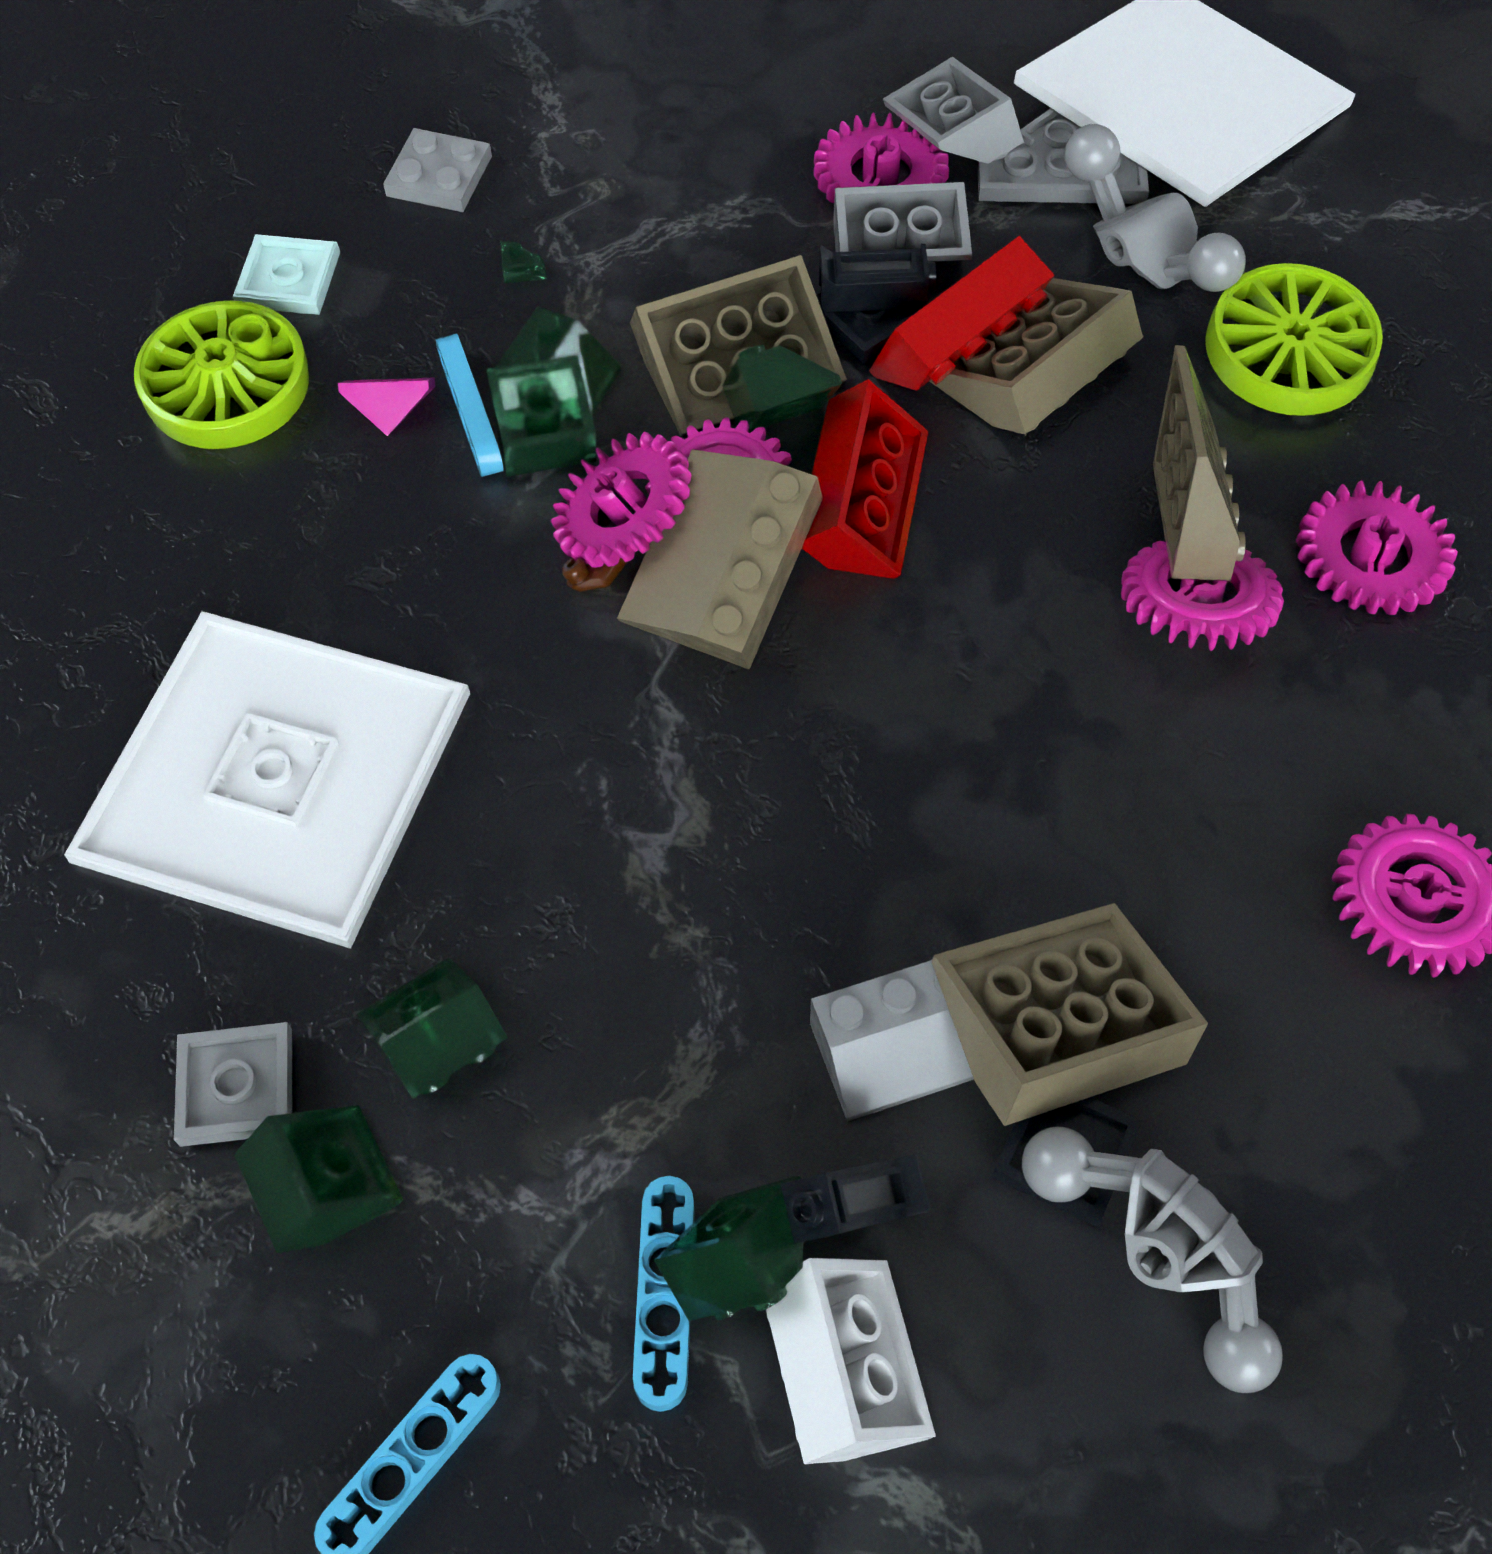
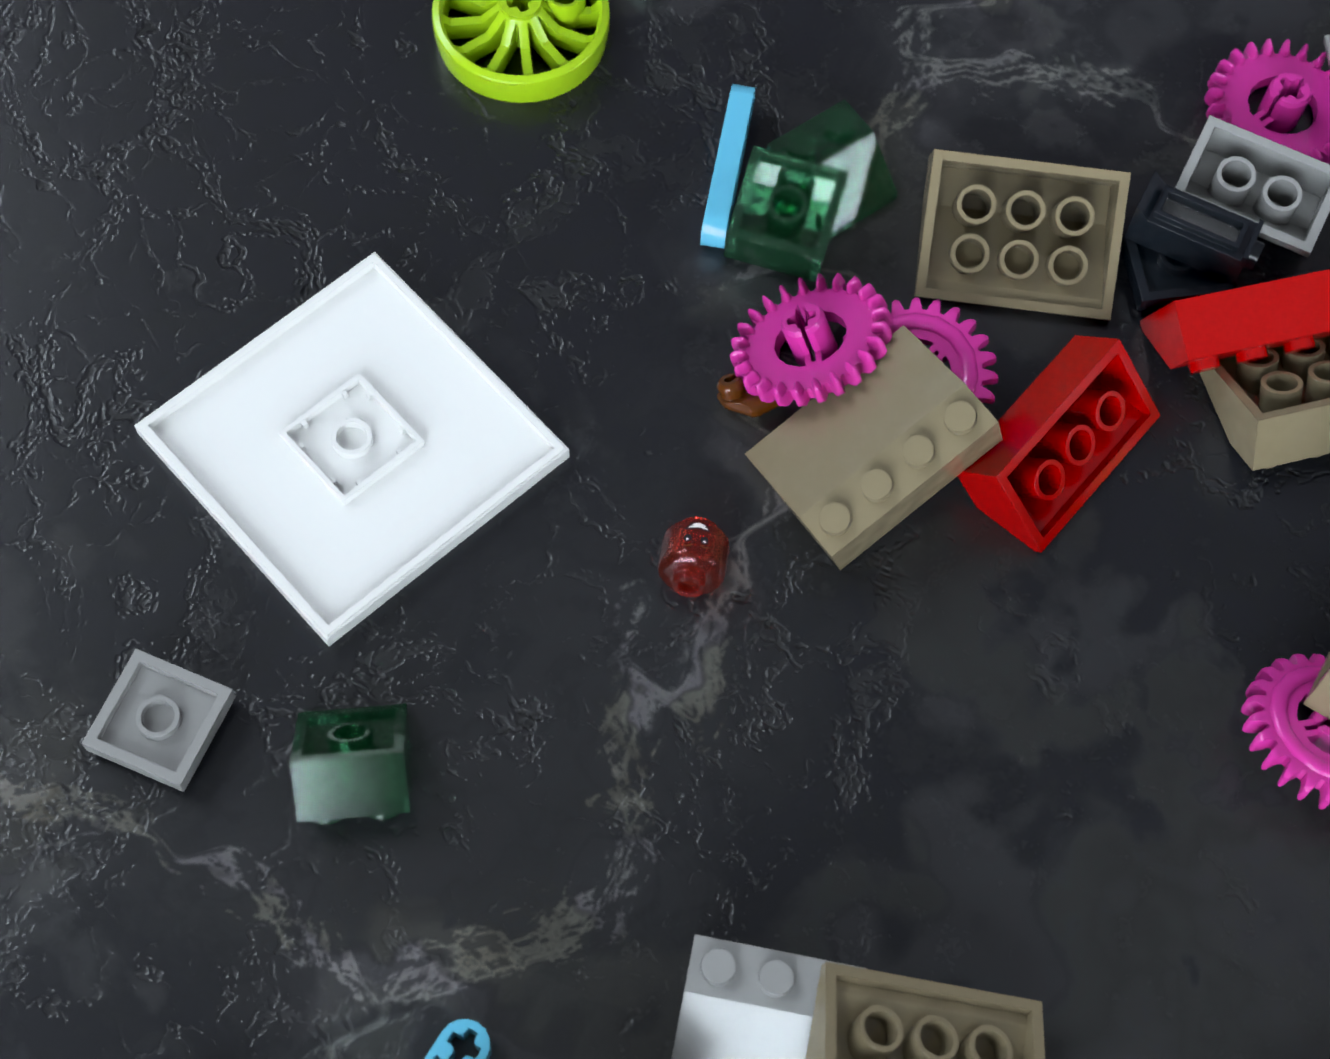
camera: 25 degrees right, 5 degrees up
(316, 1176) = (181, 845): clear green slope -> none
(386, 400) = (656, 120): slope -> none
(520, 263) = (862, 39): clear green tile -> none
(624, 711) = (693, 555): none -> clear red head
(776, 386) = (1025, 298): clear green slope -> none

